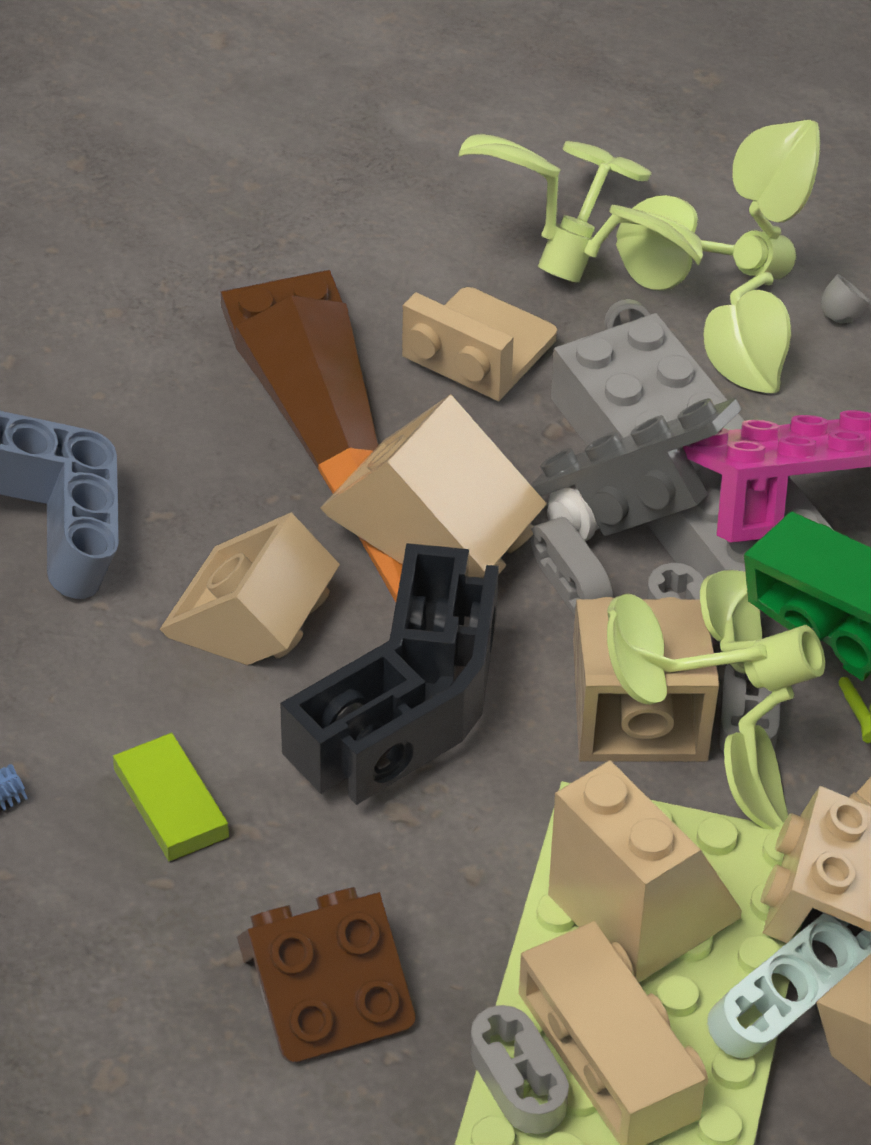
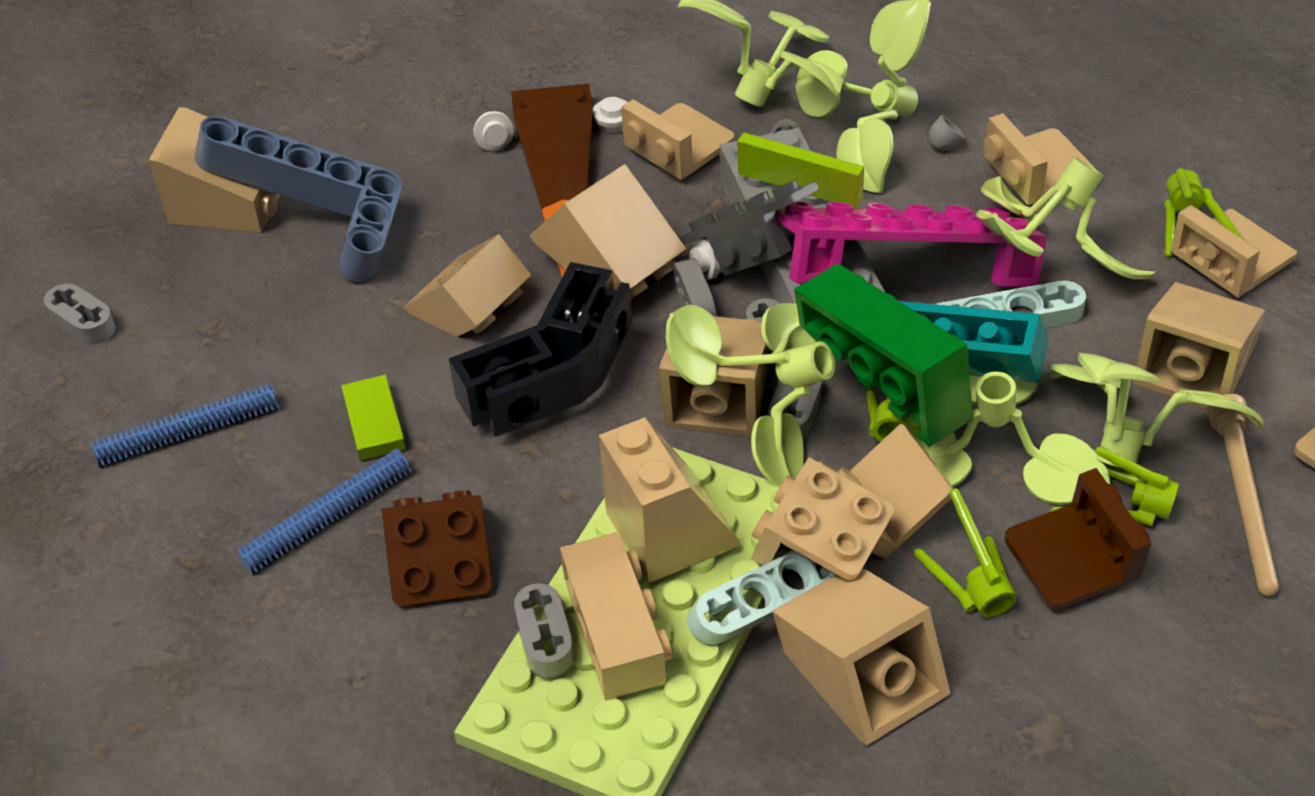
camera: 15 degrees right, 0 degrees up
(142, 939) = (323, 509): none -> medium blue axle
(212, 353) = (493, 130): none -> white plate
(374, 312) = (609, 114): none -> white plate
(686, 376) = (782, 163): none -> lime tile

